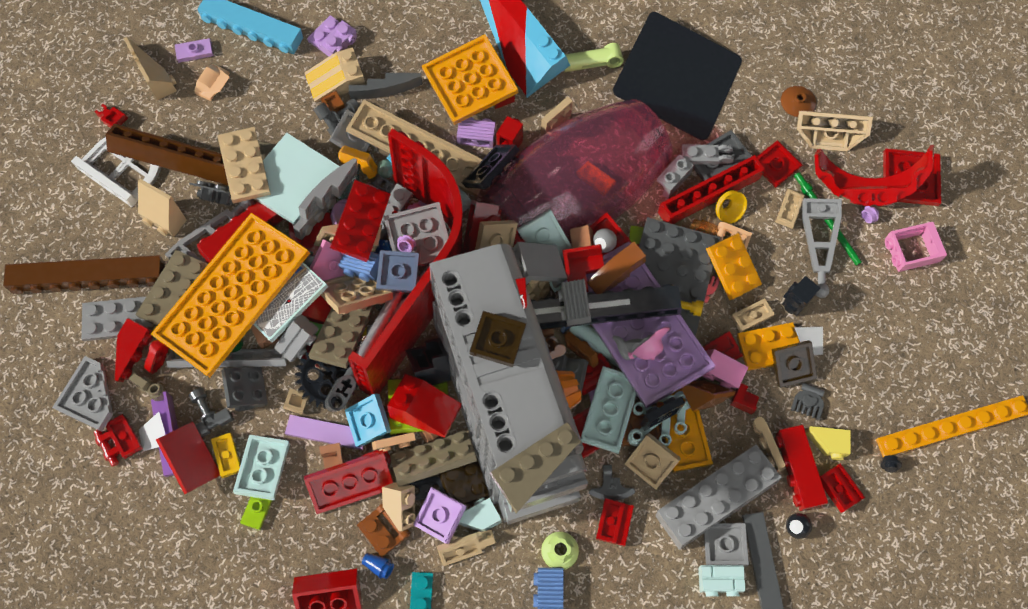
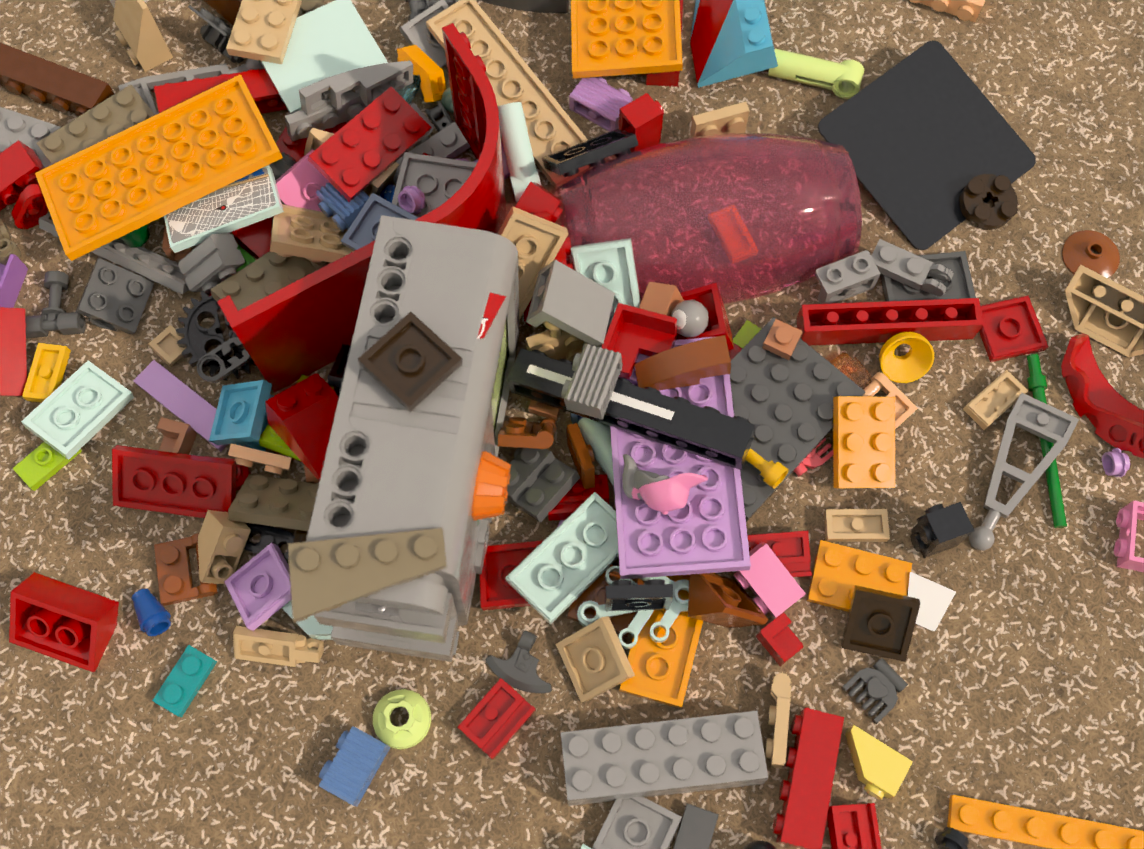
camera: 30 degrees right, 0 degrees up
(660, 228) = (782, 339): none -> nougat plate
(736, 90) = (996, 188): none -> dark brown plate

